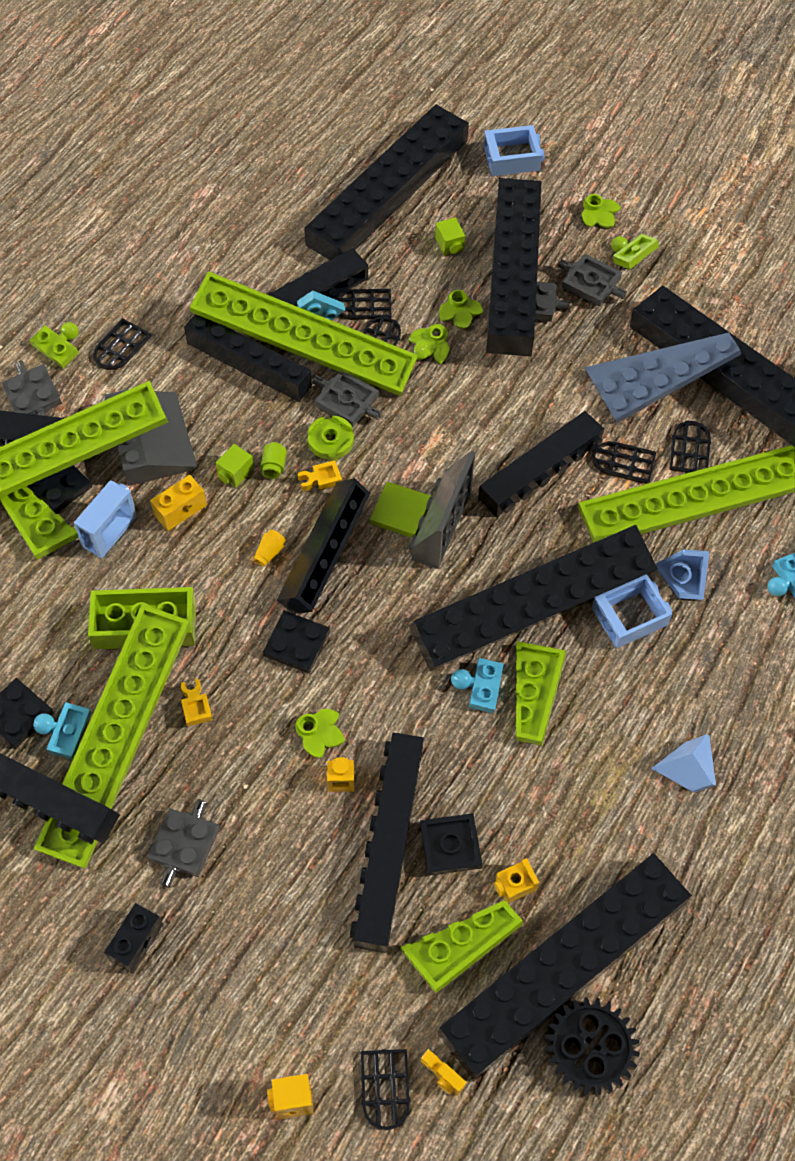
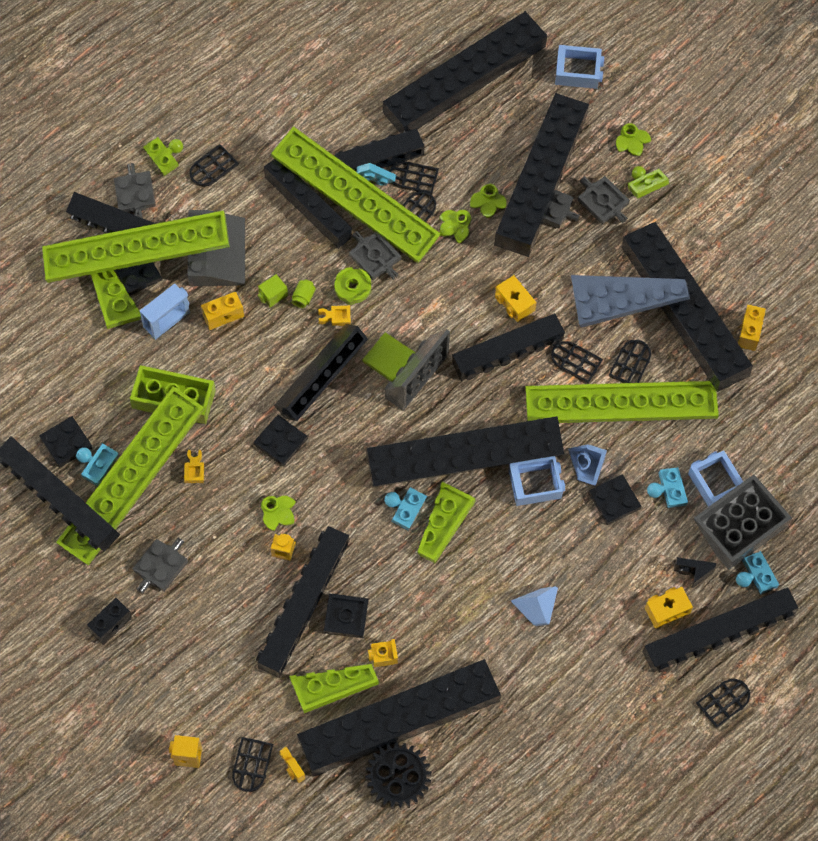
camera: 15 degrees right, 5 degrees up
(269, 547) = (280, 362): yellow cone -> none
(449, 236) = (500, 134): lime brick -> none
(530, 407) = (515, 298): none -> yellow brick
(733, 610) = (614, 499): none -> black plate

